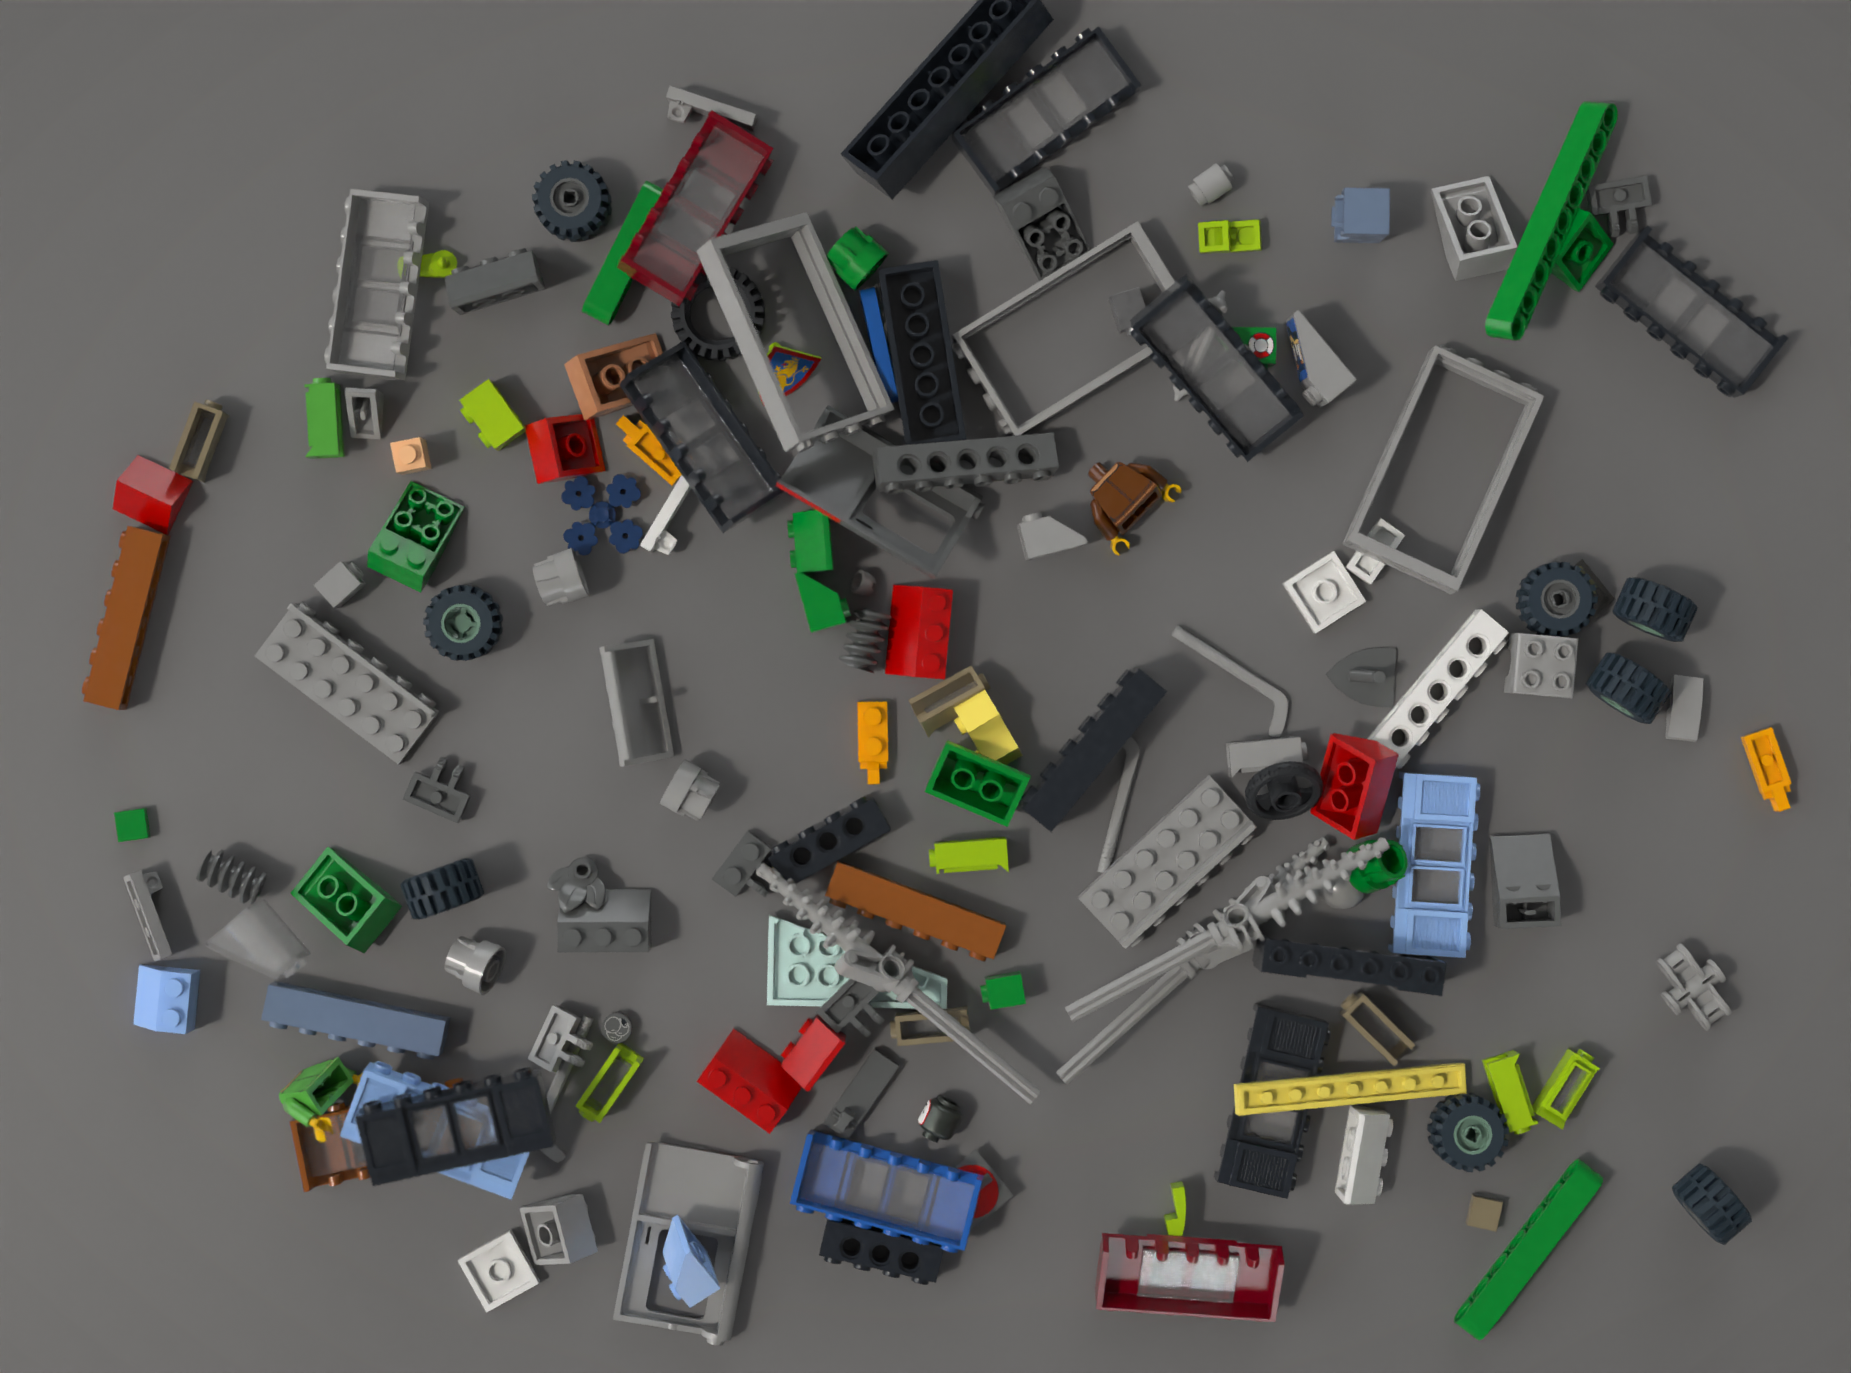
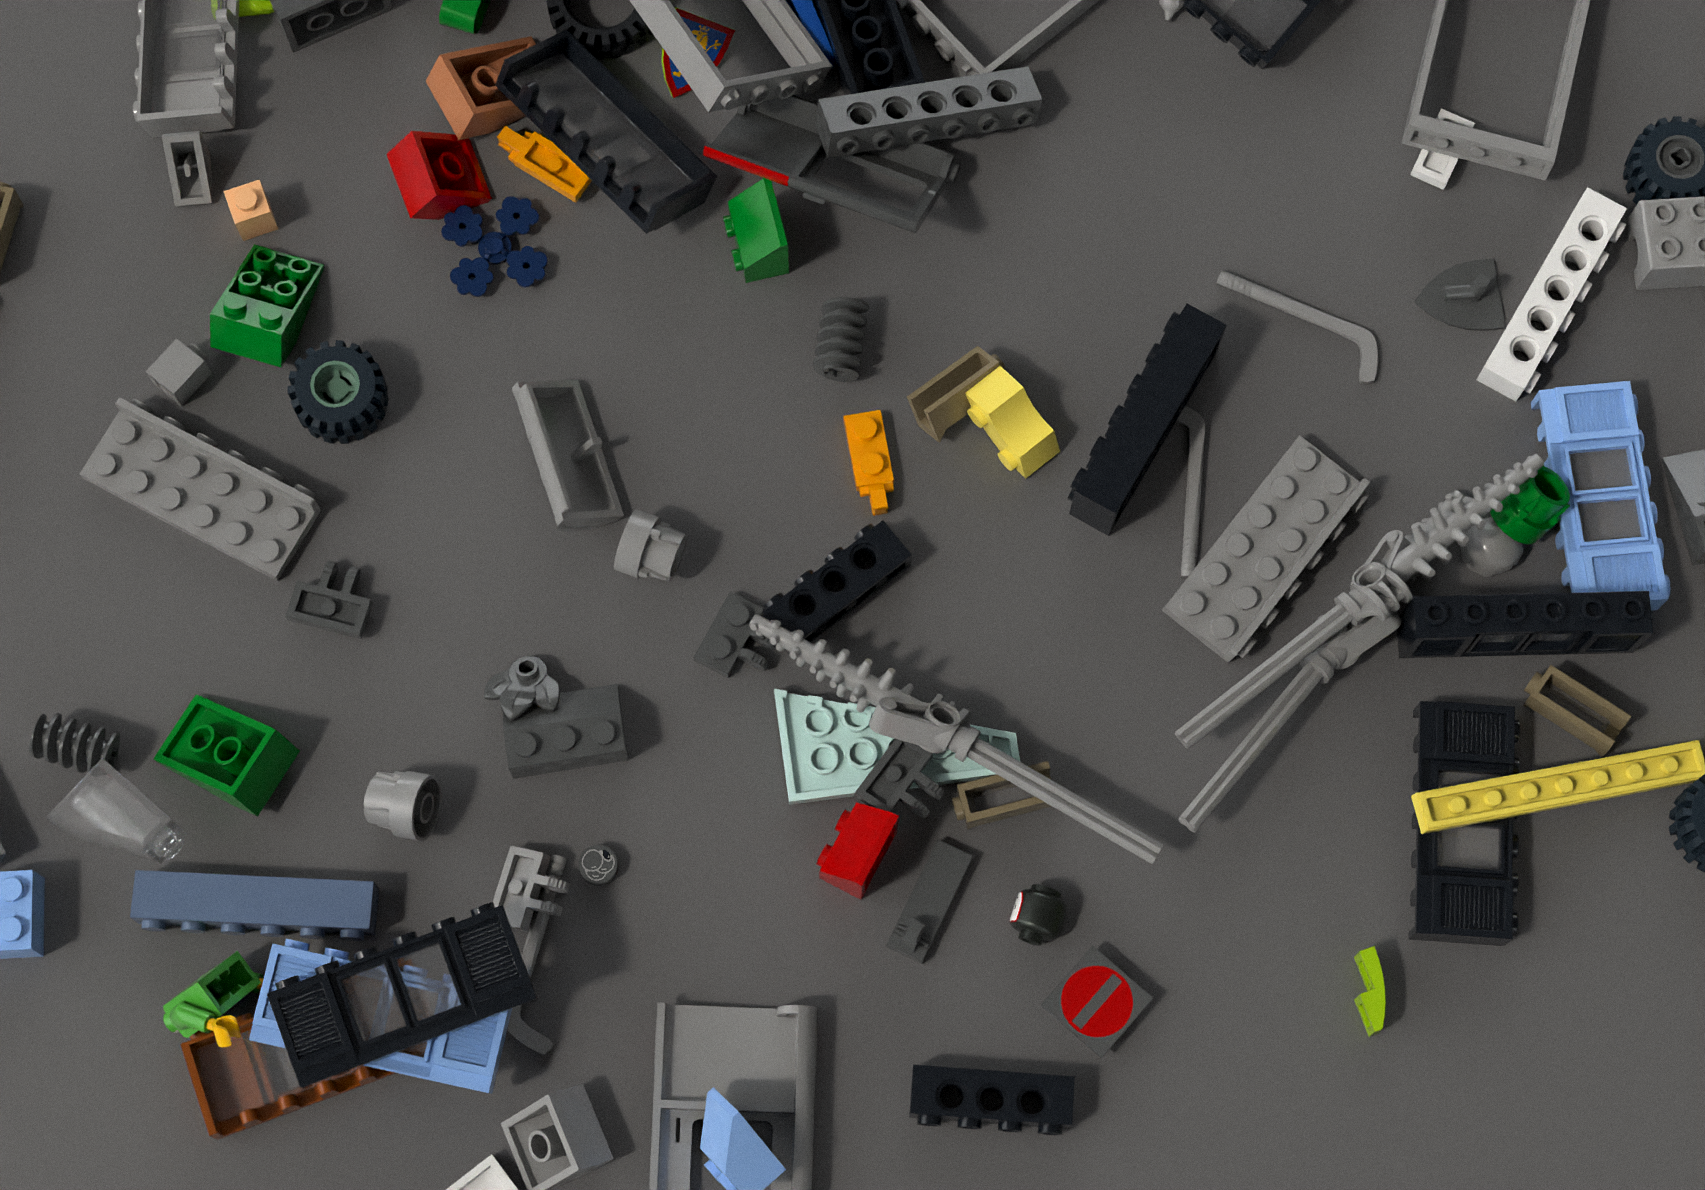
camera: 10 degrees left, 15 degrees down
(324, 419) = (140, 187): bright green window -> none
(442, 889) = (349, 710): black wheel -> none
(492, 415) = (346, 151): lime brick -> none
(560, 578) = (454, 320): light grey piece -> none
(609, 1083) = (597, 935): window -> none
(657, 536) = (566, 257): white hinge -> none
(750, 1081) = (783, 904): red slope -> none
(821, 604) = (780, 299): green slope -> none
(862, 583) = (827, 277): light grey hinge -> none
(886, 1191) = (985, 1015): clear window -> none
(915, 910) = (961, 654): dark orange brick -> none
(919, 631) = (906, 320): red slope -> none
(969, 855) = (1017, 575): lime window -> none
(977, 783) = (1011, 475): green slope -> none
(1003, 990) = (1091, 737): green brick -> none
(1046, 536) = (1045, 182): light grey slope -> none
(1124, 497) = (1127, 128): reddish brown torso -> none
(1189, 1277) = (1406, 1064): dark red window -> none
(1258, 754) = (1361, 400): light grey window -> none
(1284, 793) = (1409, 441): black wheel -> none
(1324, 592) = (1391, 206): white tile -> none
(1355, 784) = (1479, 411): red slope -> none
(1363, 1155) = (1596, 871): white slope -> none

